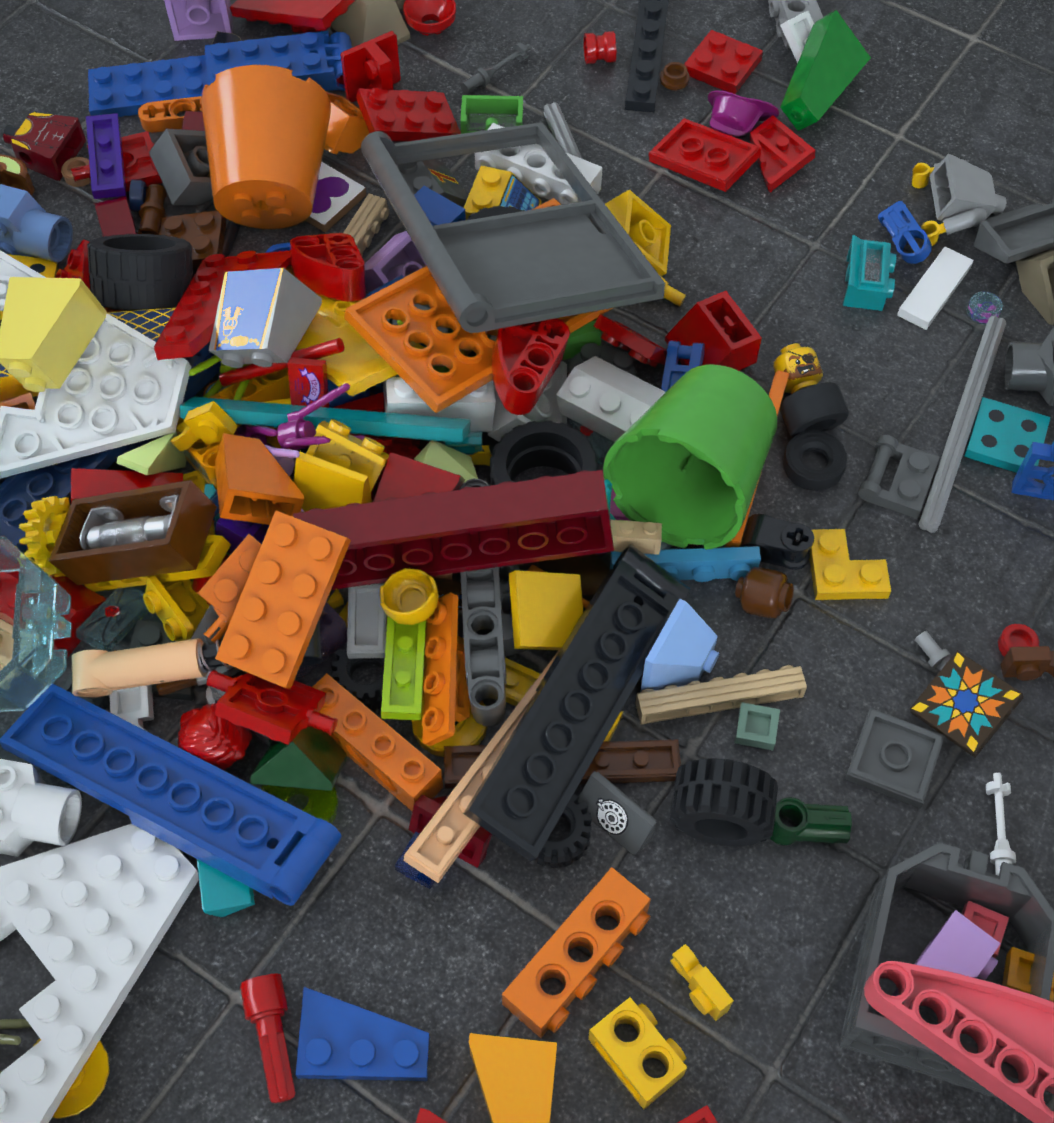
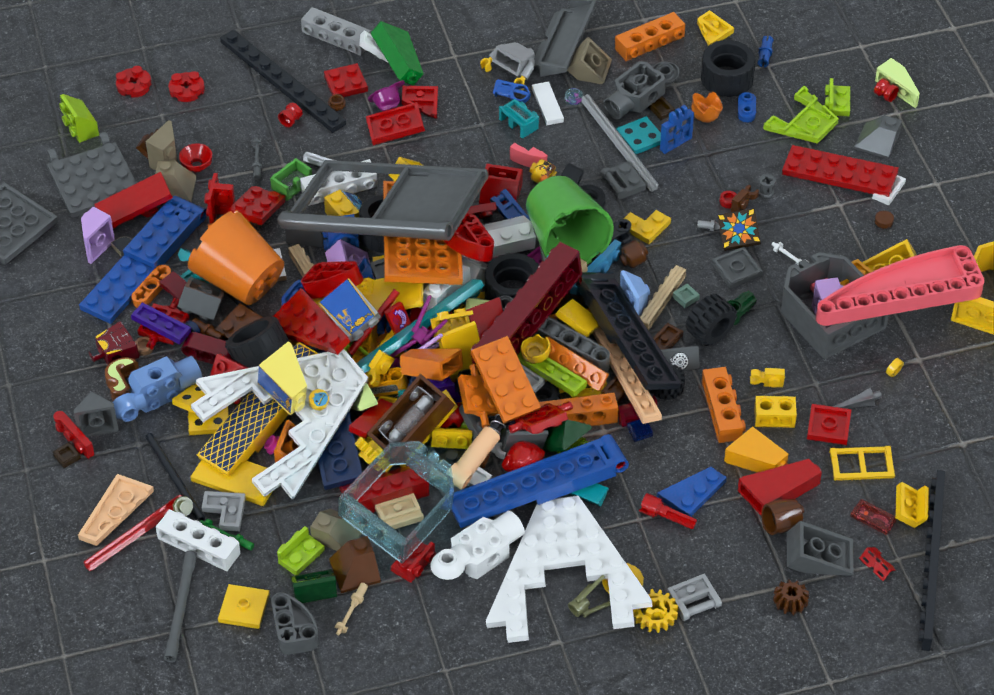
camera: 50 degrees left, 10 degrees down
(73, 398) = (318, 399): none -> tile
(808, 332) = (524, 157): none -> coral slope

